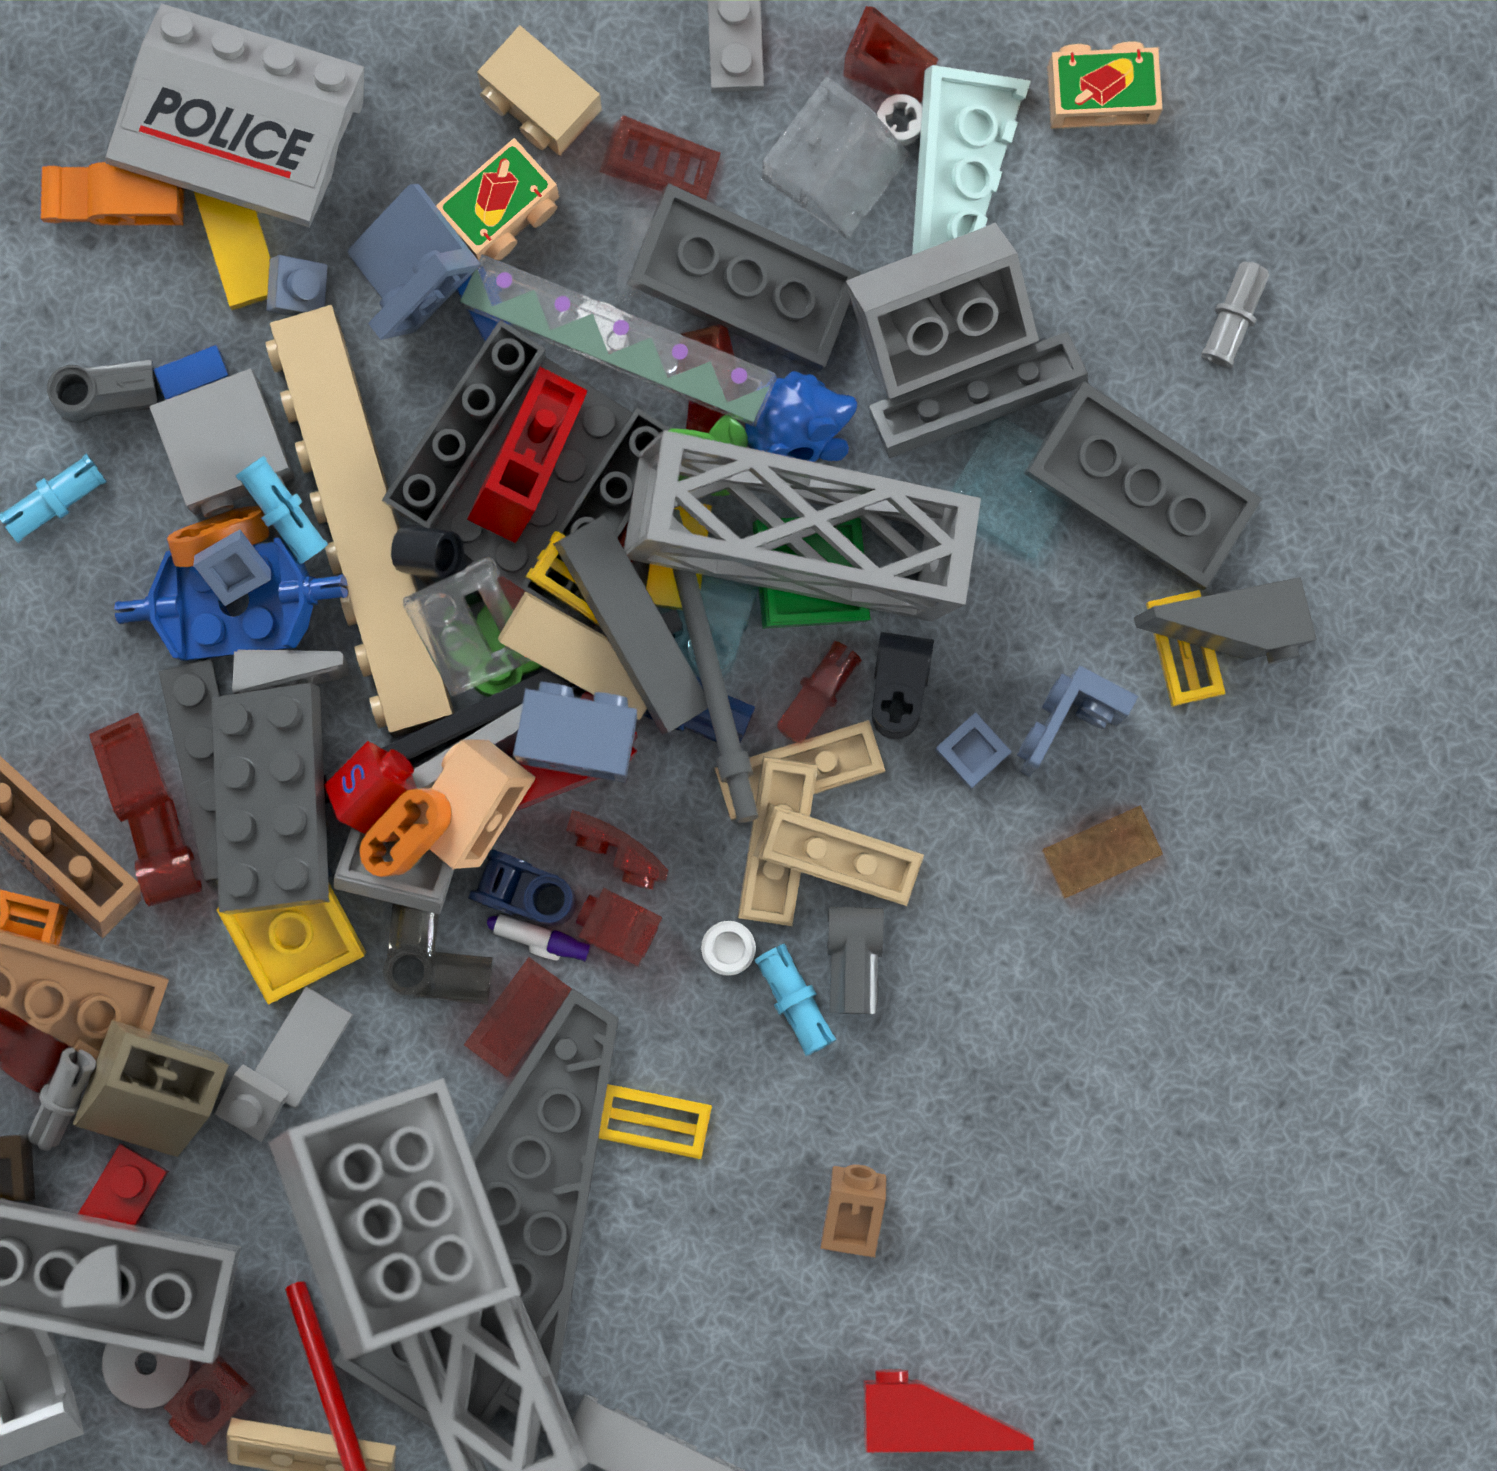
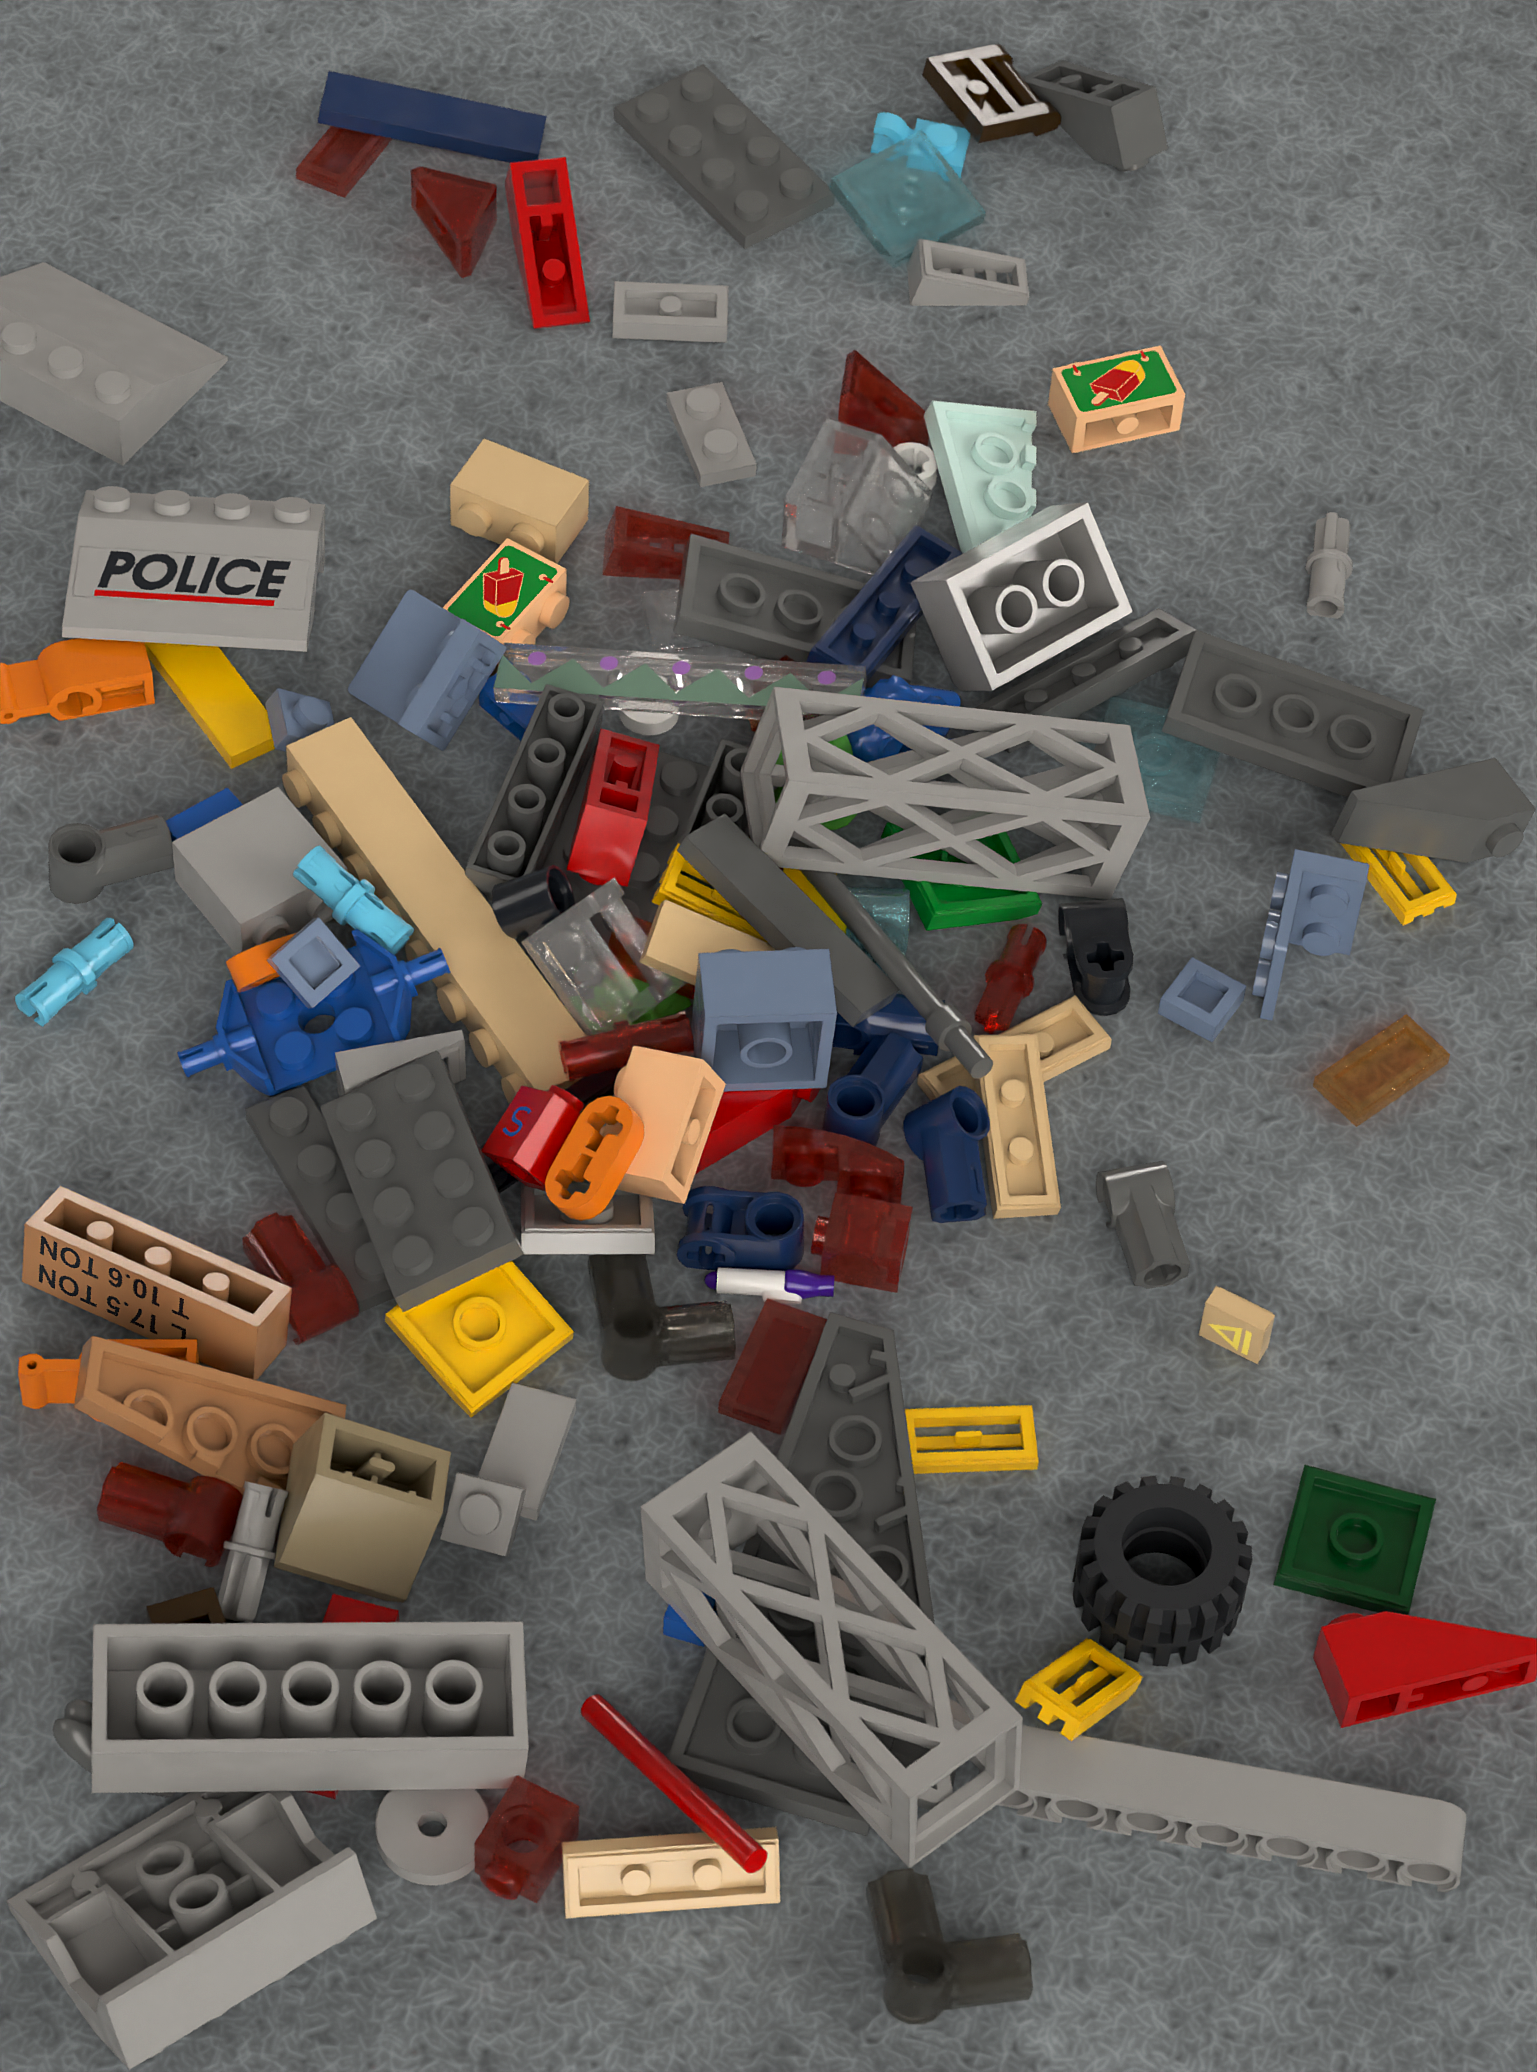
camera: 15 degrees left, 30 degrees down
(94, 1280) = (362, 1674): light grey tile -> none
(129, 767) = (240, 1197): clear red tile -> none
(393, 1218) = (710, 1496): light grey slope -> none
(466, 714) = (613, 1047): none -> clear red pin
(633, 1405) = (1063, 1706): none -> yellow tile
(671, 777) = (872, 1089): none -> dark blue piece
(716, 848) = (946, 1140): none -> dark blue piece
(728, 948) = (994, 1248): white tile -> none
(773, 1342) = (1150, 1614): none -> black tyre
(795, 999) = (1091, 1277): medium azure pin -> none
(822, 288) = (884, 606): none -> dark blue tile
(838, 855) = (1089, 1118): tan tile -> none
(854, 1210) = (1240, 1469): medium nougat bracket -> none
(896, 1078) = (1236, 1324): none -> tan tile
(929, 1291) = (1355, 1542): none -> dark green tile

